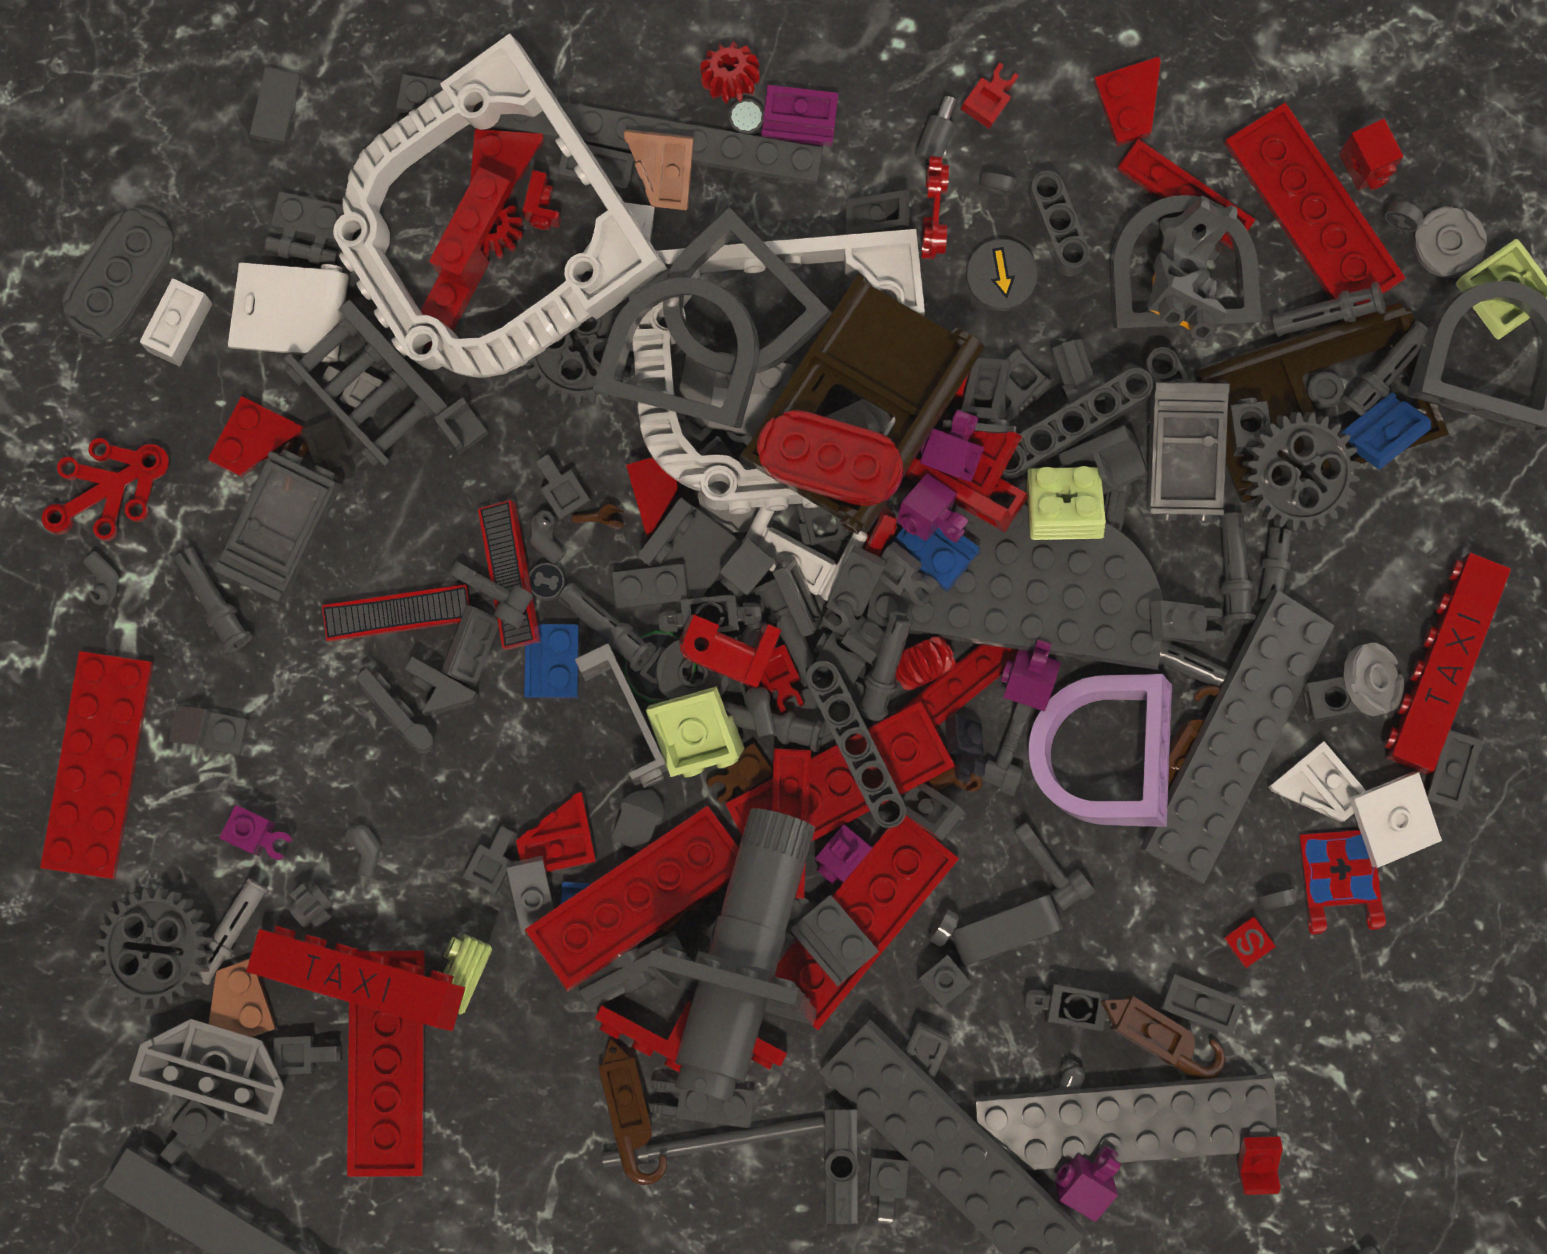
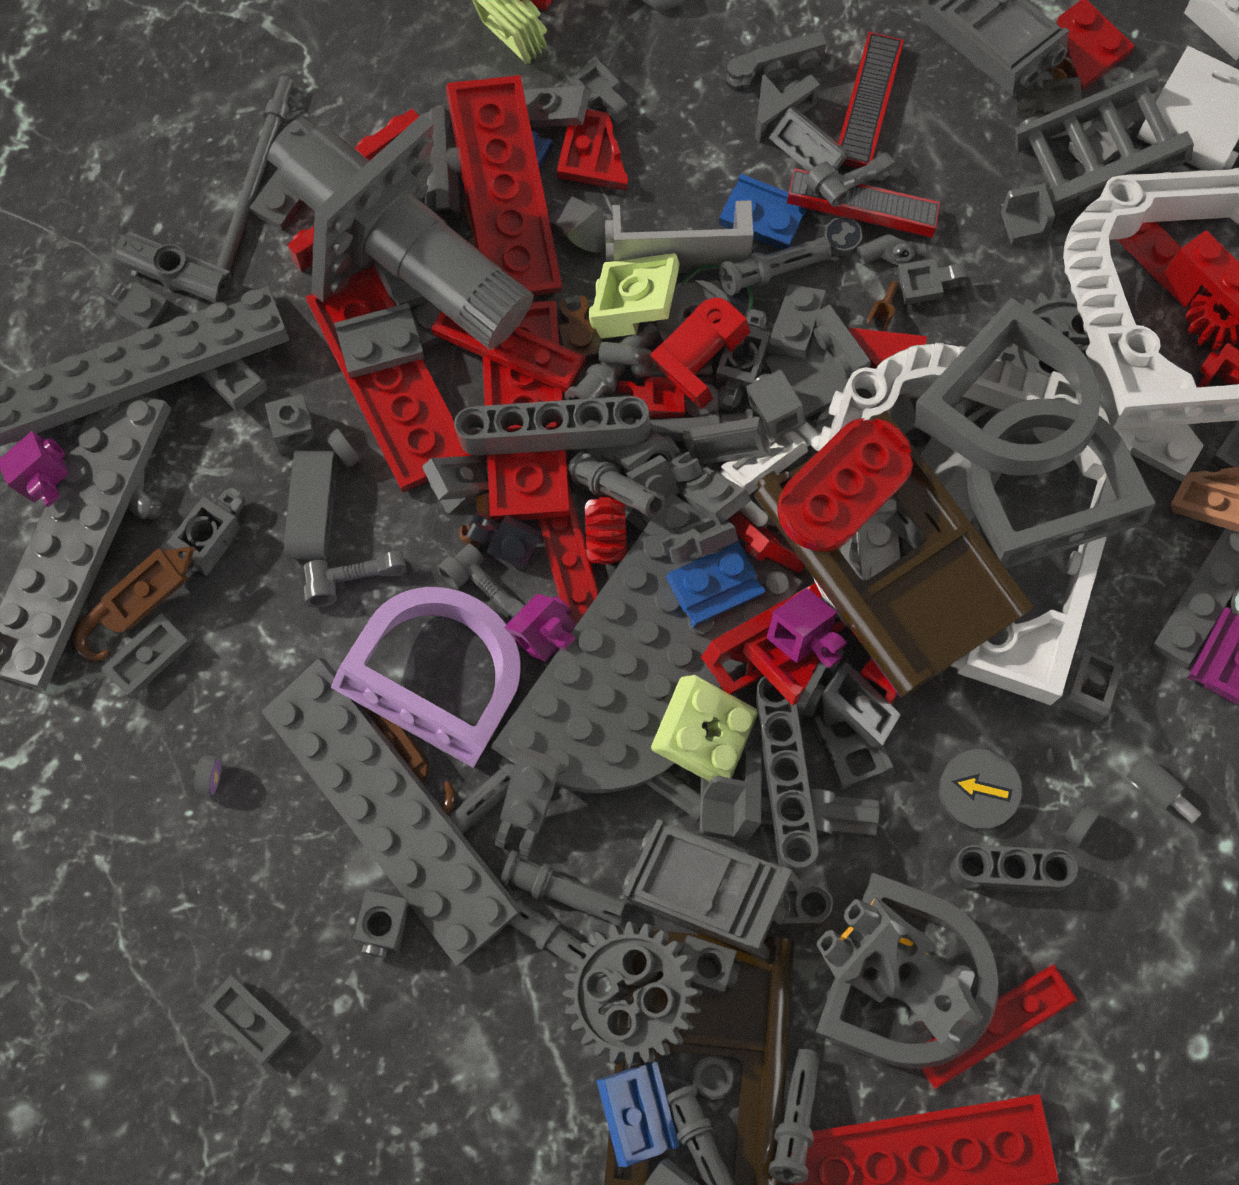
camera: 115 degrees right, 10 degrees down
(628, 1113) = (342, 114): reddish brown plate -> none
(841, 855) = (457, 383): magenta brick -> none
(930, 508) = (756, 585): magenta brick -> none
(933, 233) = (1092, 733): red plant -> none
(988, 98) = (1180, 857): red plate -> none
(1129, 99) = (1126, 1012): red wing -> none
(1249, 942) = (183, 732): red tile -> none
(1320, 784) = (299, 877): white wing -> none
(1339, 874) = (205, 854): red flag -> none
(1373, 679) = (379, 975): light grey tile -> none
(1395, 819) = (226, 932): white plate -> none
(1447, 663) = (360, 1068): red brick -> none

